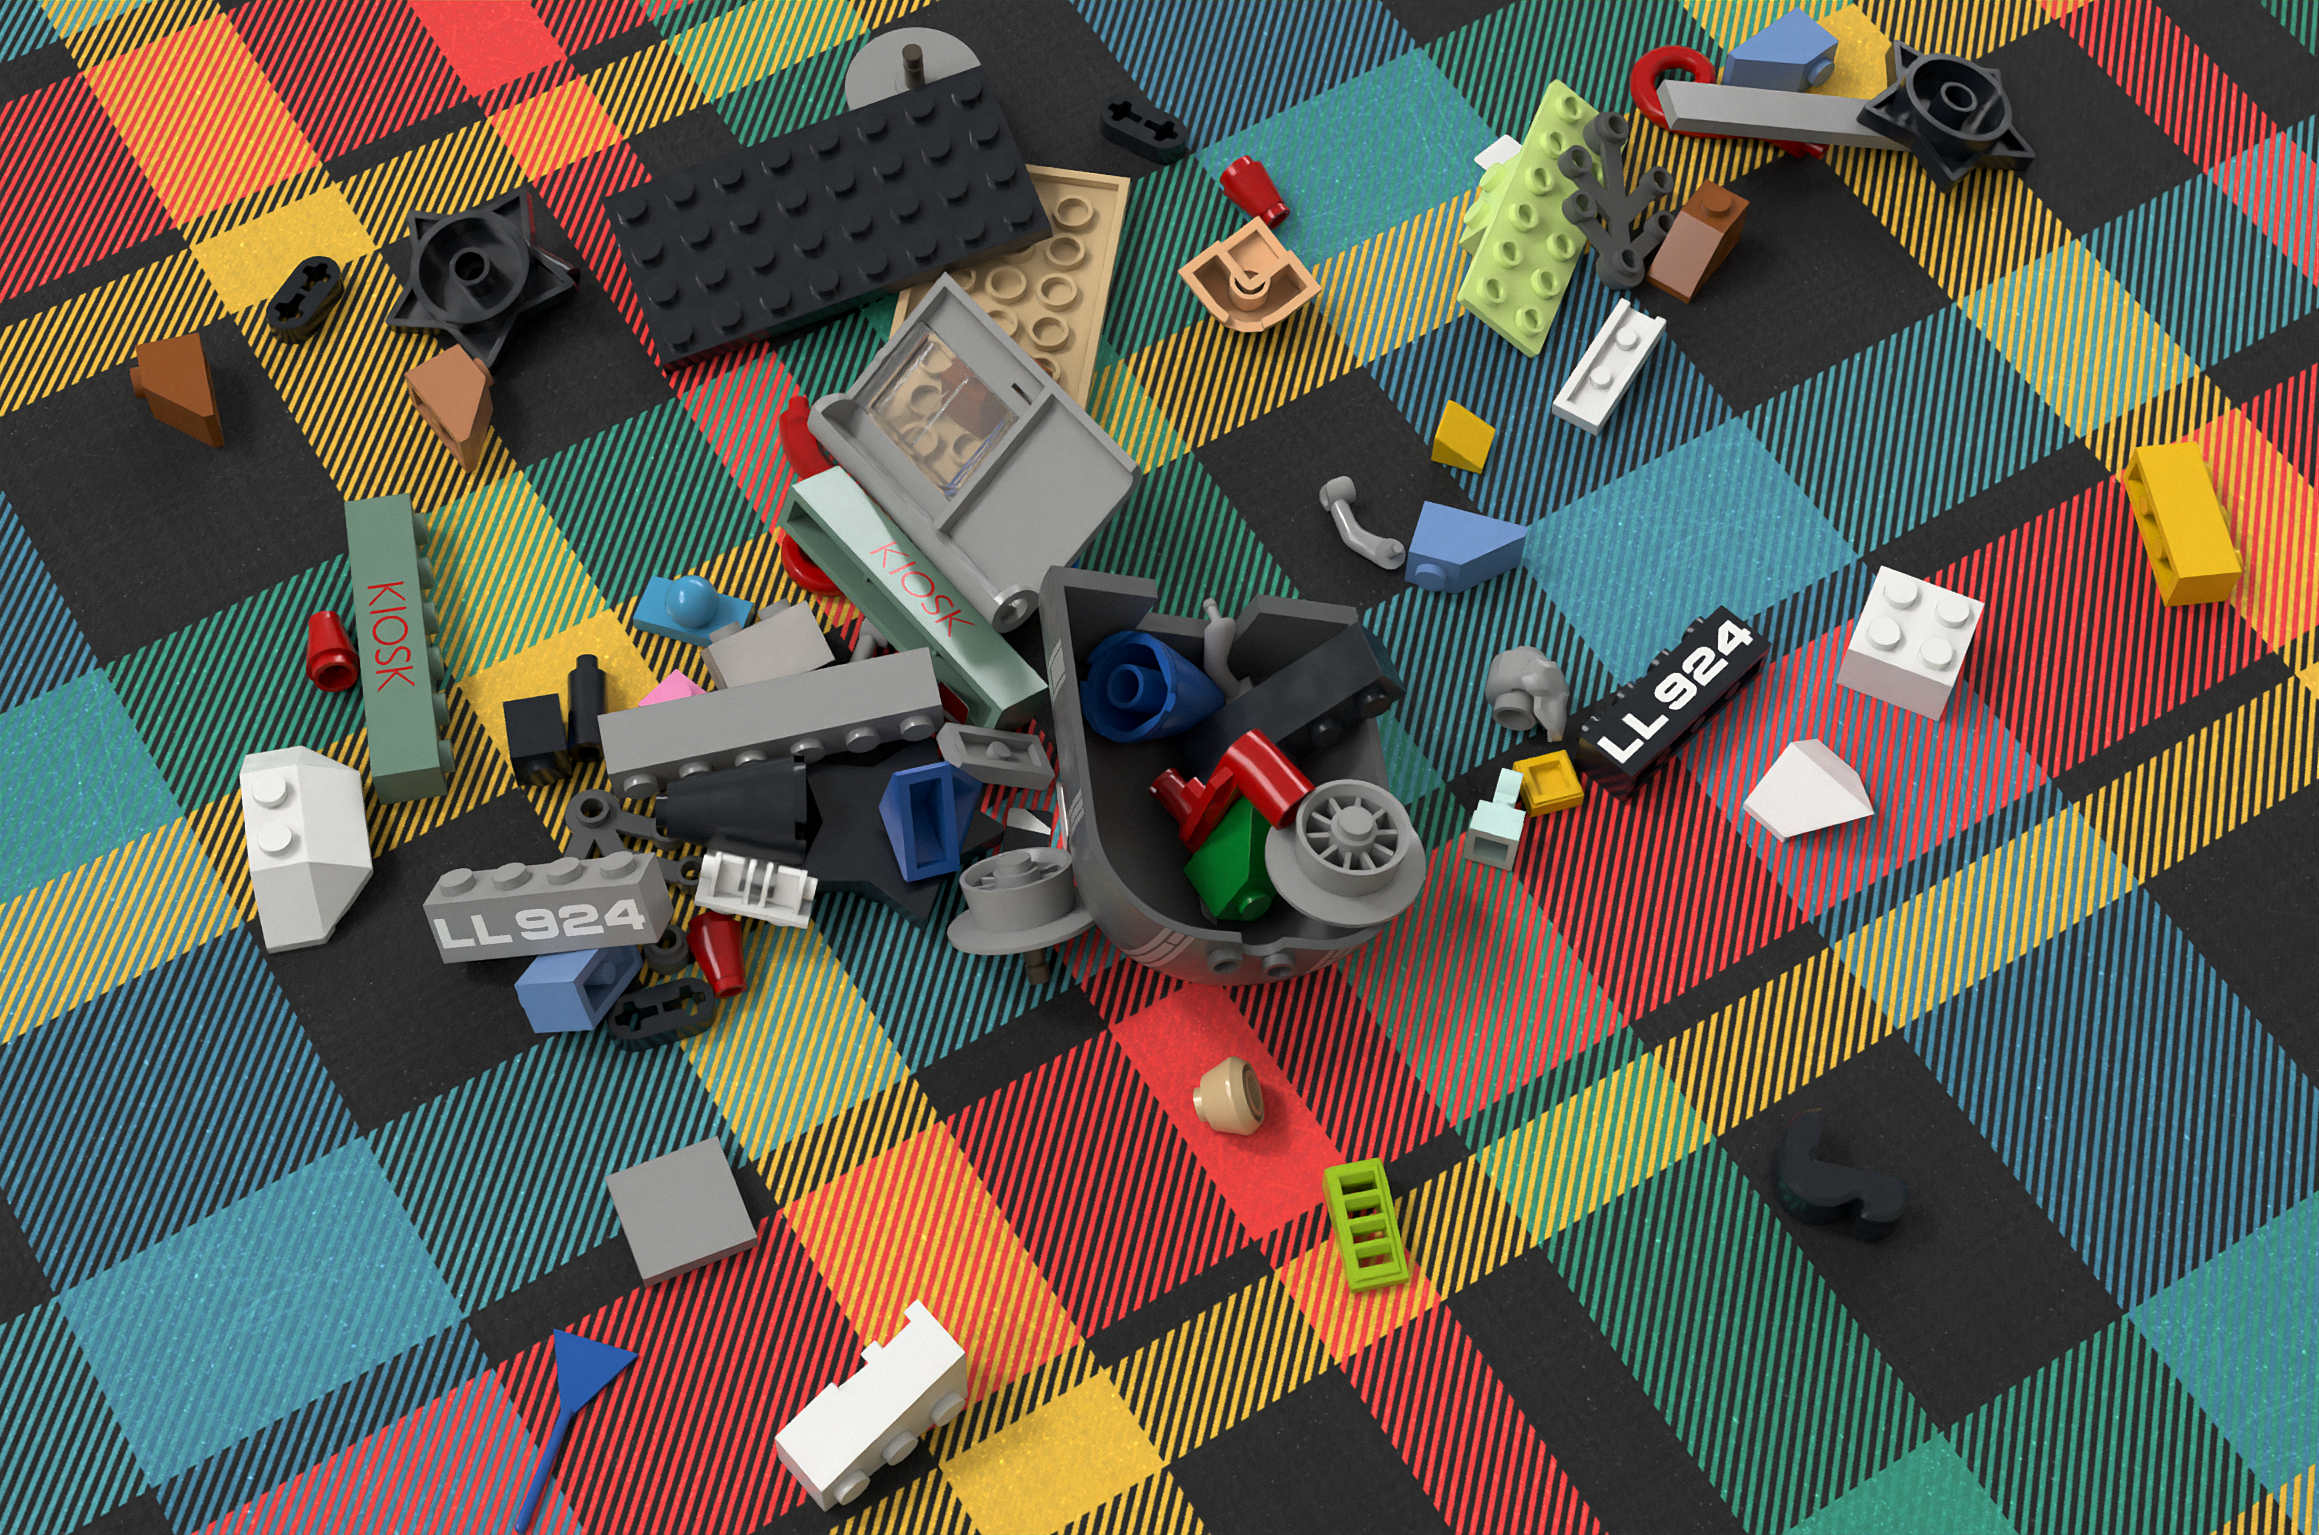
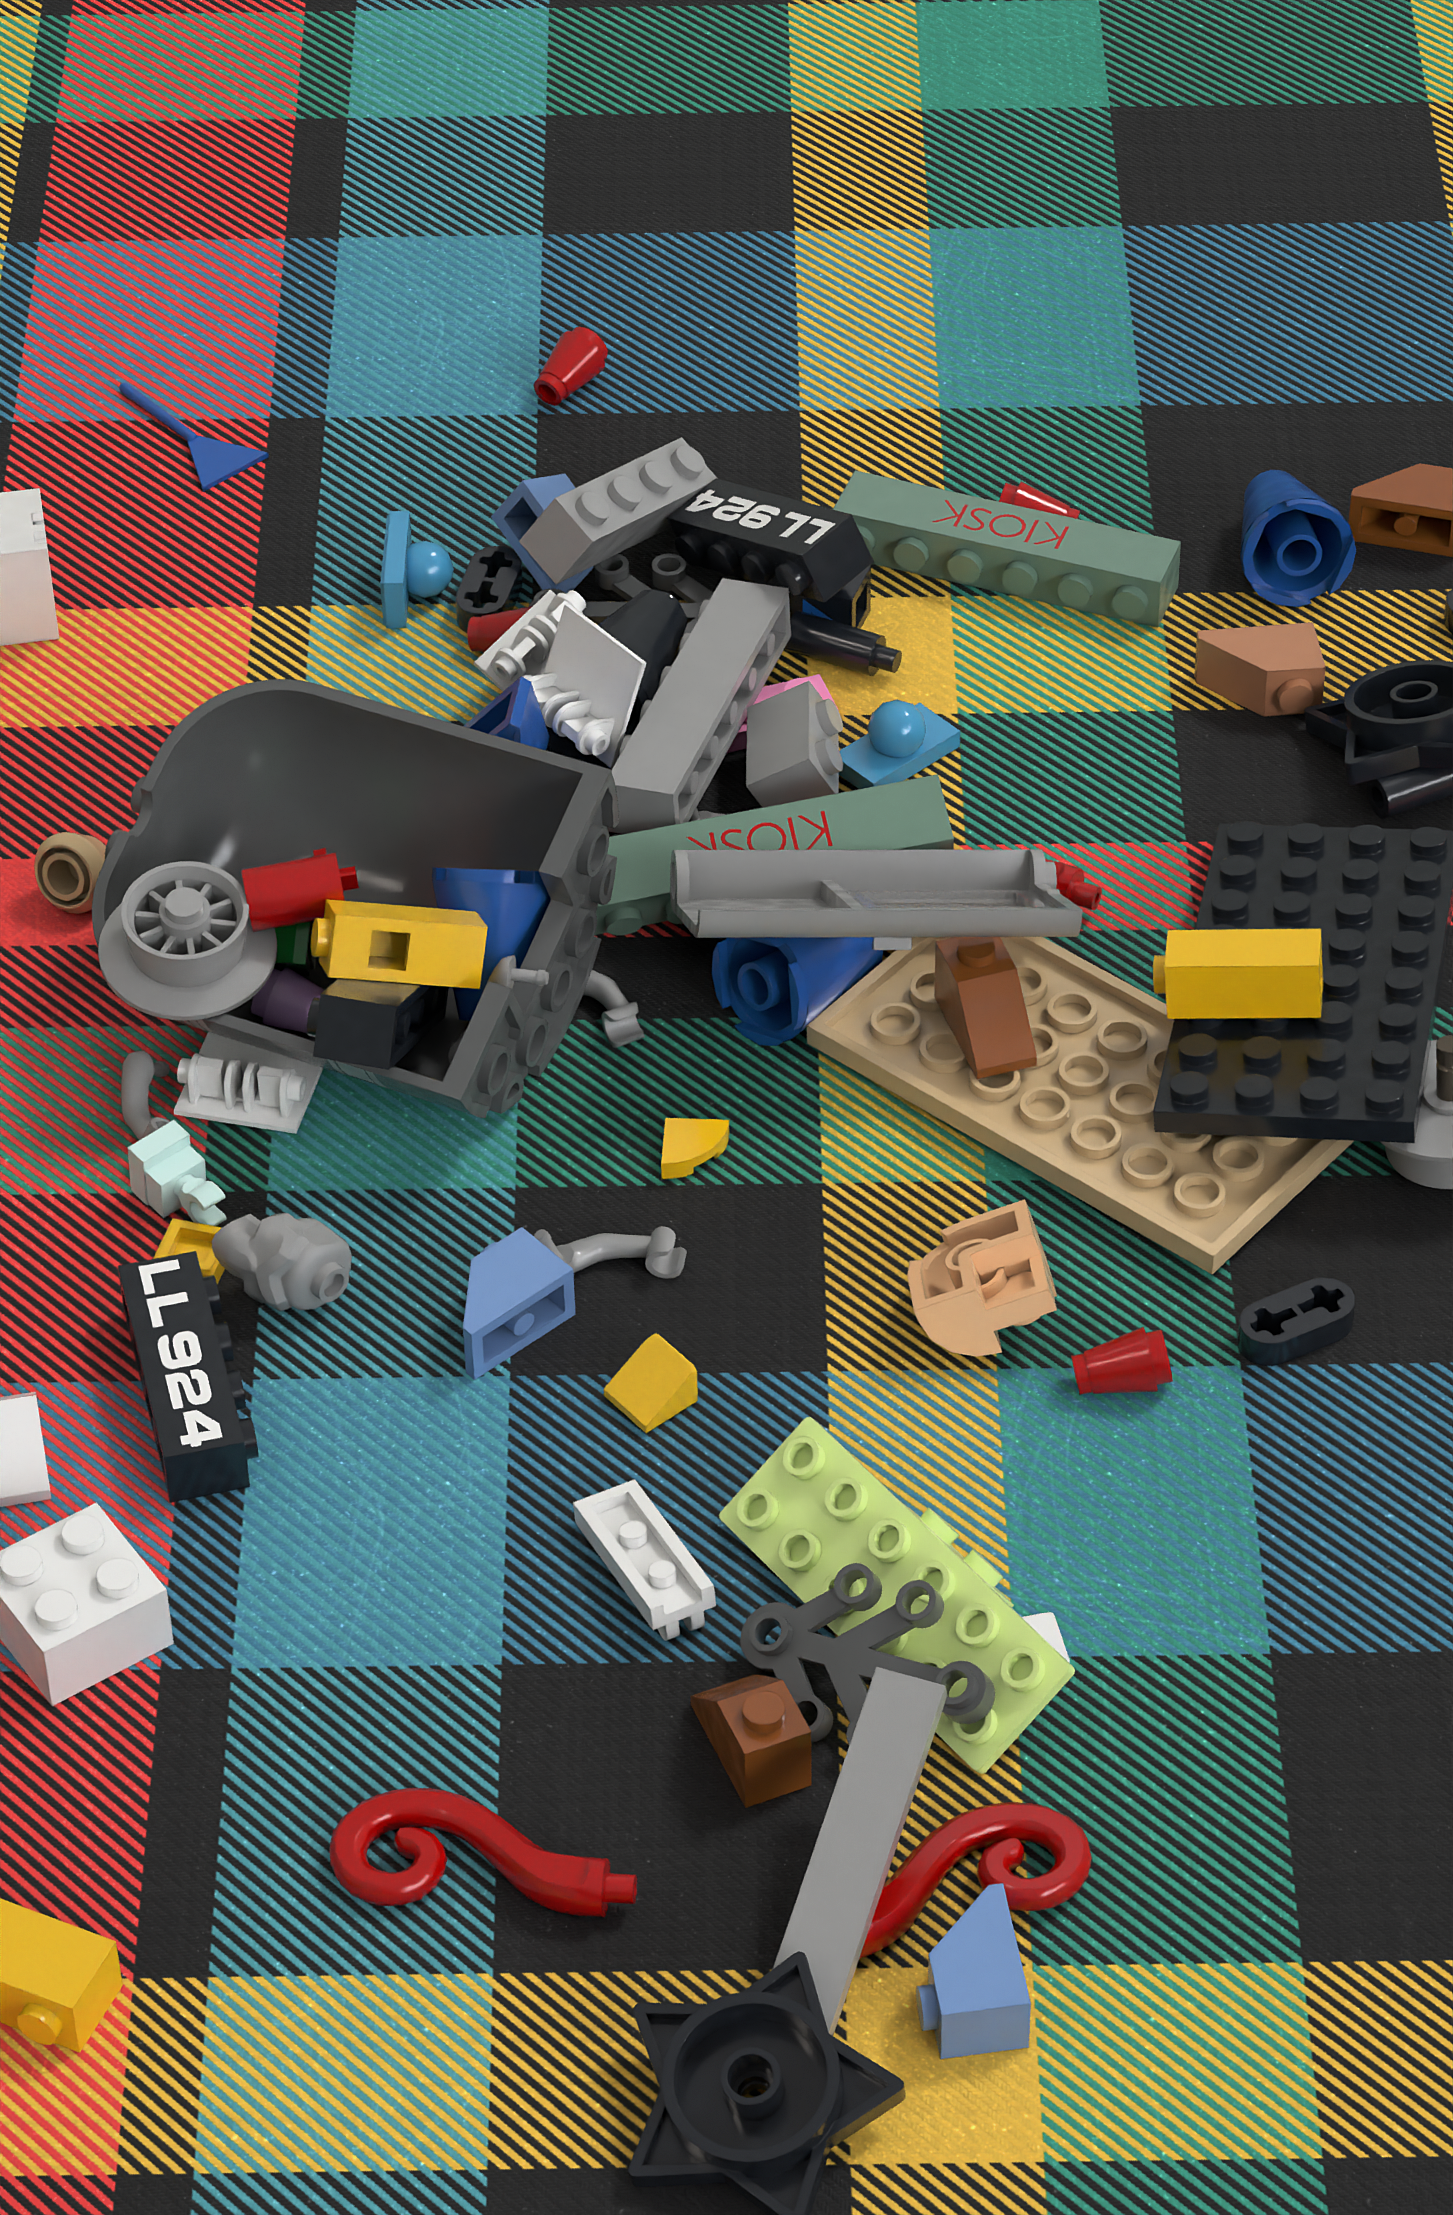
camera: 125 degrees right, 15 degrees down
(271, 451) = (1293, 541): none -> blue cone
(296, 1122) = (573, 362): none -> red cone
(303, 843) = (838, 425): white wedge -> none
(529, 767) = (770, 539): none -> black brick
(681, 1211) = (298, 543): light grey tile -> none
(683, 1082) = (408, 567): none -> dark azure tile
(843, 772) = (588, 686): none -> white hinge
(896, 209) = (1241, 973): none -> yellow brick
(1221, 533) = (690, 1144): none -> yellow tile
(1259, 691) = (400, 944): none -> yellow brick
(1434, 911) = (136, 1078): none -> light grey piece
(1882, 289) = (551, 1879): none -> red plant

